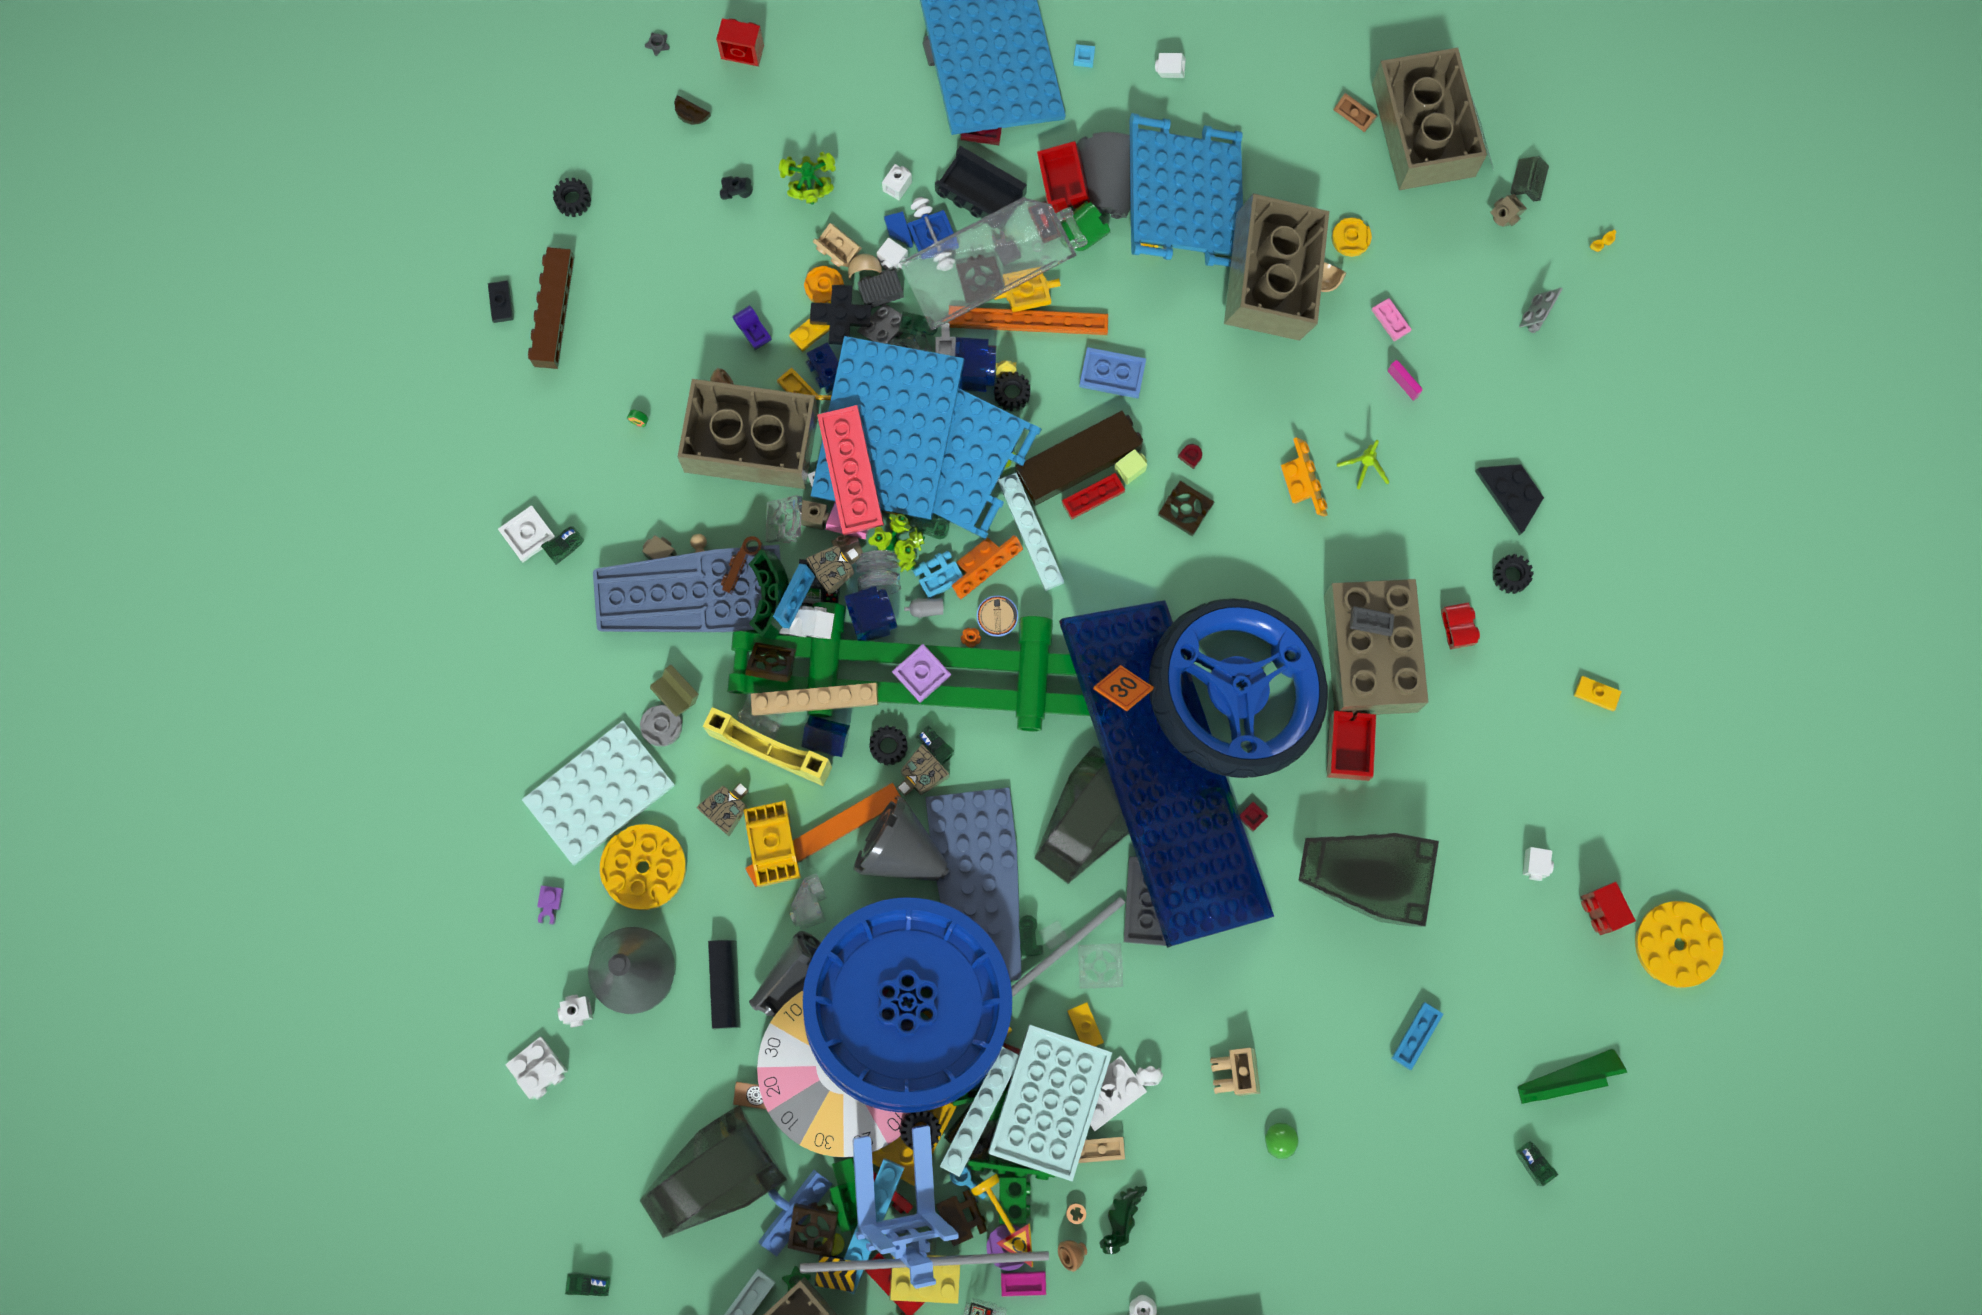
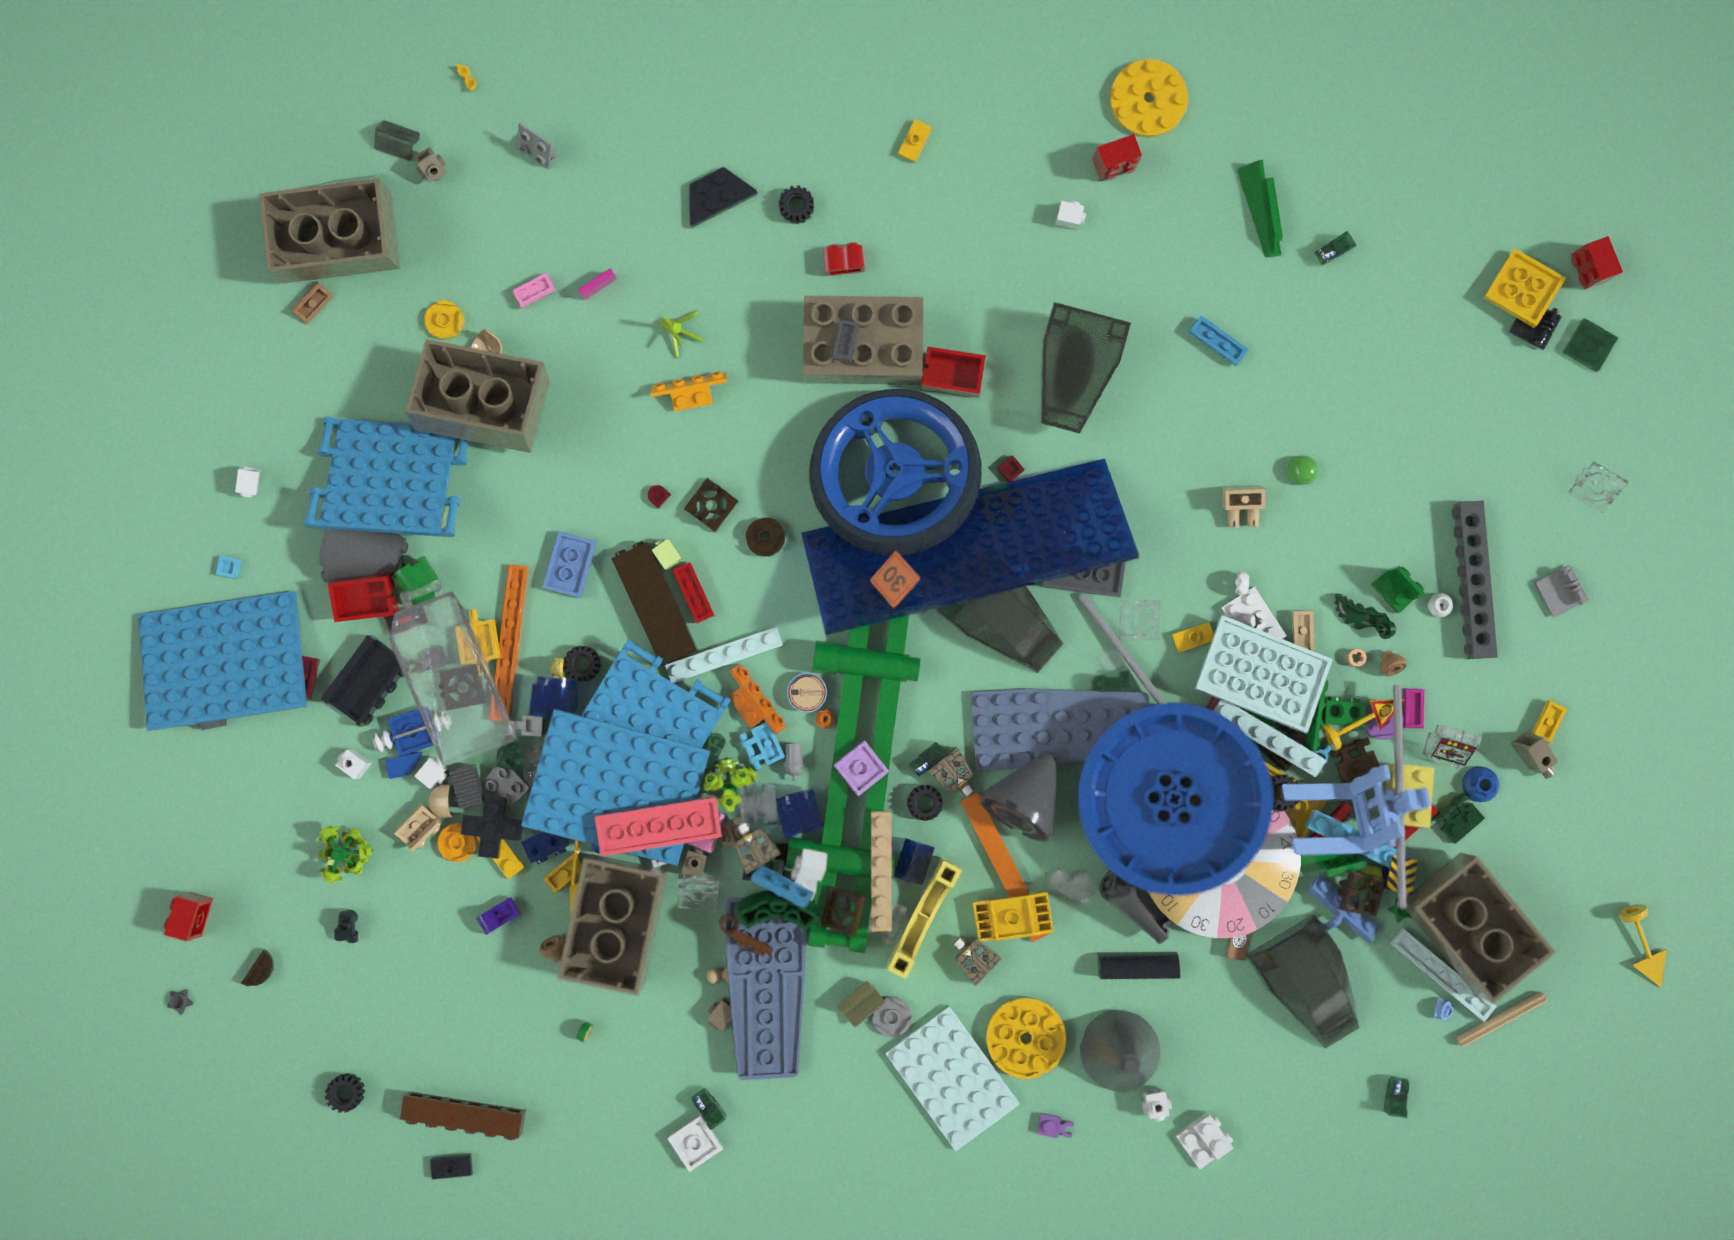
camera: 85 degrees left, 10 degrees up
(1157, 1256) = (1398, 588): none -> green bracket
(1161, 575) = (760, 527): none -> dark brown plate

